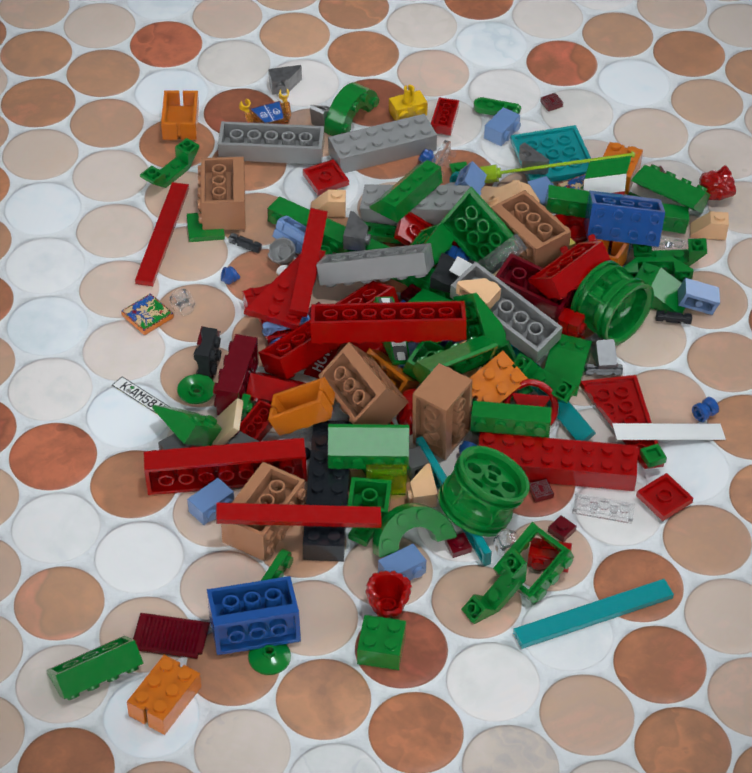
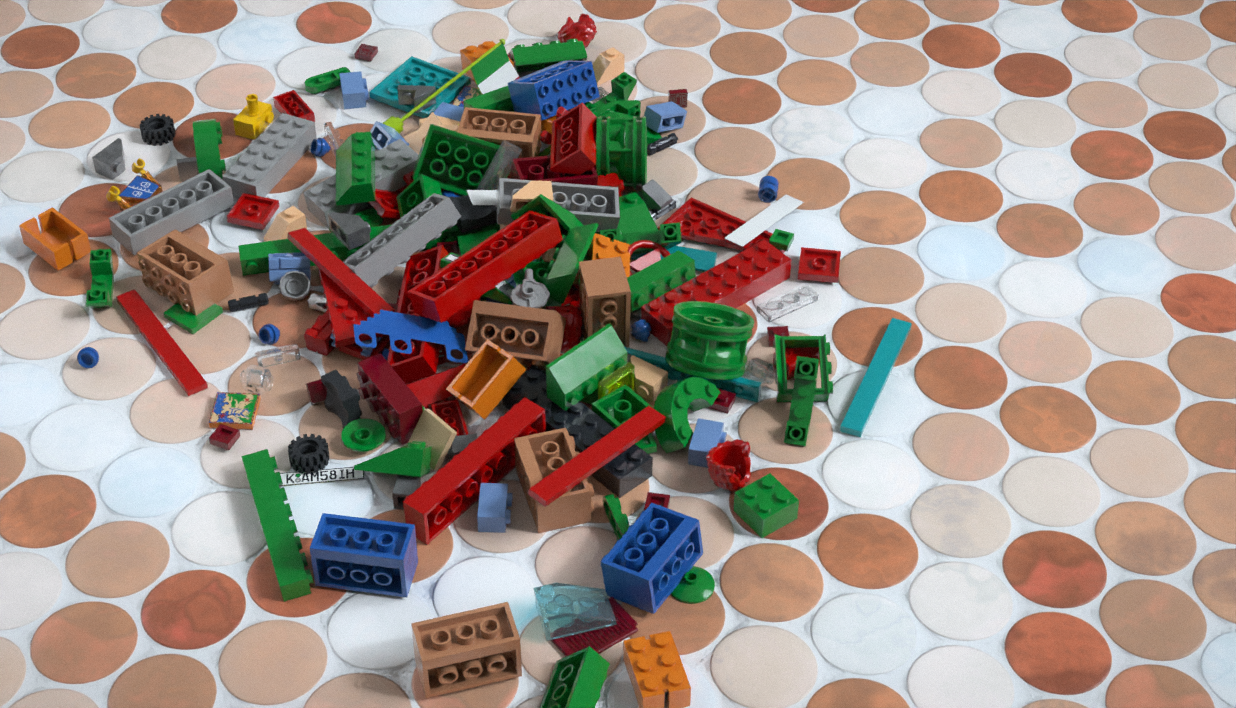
camera: 45 degrees left, 5 degrees down
(66, 580) = (467, 649): none -> nougat brick
(74, 410) = (276, 525): none -> green brick
(87, 470) = (364, 555): none -> blue brick
(107, 214) = (88, 357): none -> blue plate
(118, 327) = (224, 437): none -> dark red plate
(150, 384) = (308, 445): none -> black tyre
(168, 608) = (572, 609): none -> clear light blue slope
(217, 294) = (278, 355): none -> clear slope
(291, 330) = (408, 327): none -> blue piece
(315, 583) = (656, 498): none -> dark red plate
(331, 71) = (157, 129): none -> black tyre
(397, 365) = (530, 293): none -> light grey piece
(732, 288) = (678, 97): none -> dark red tile

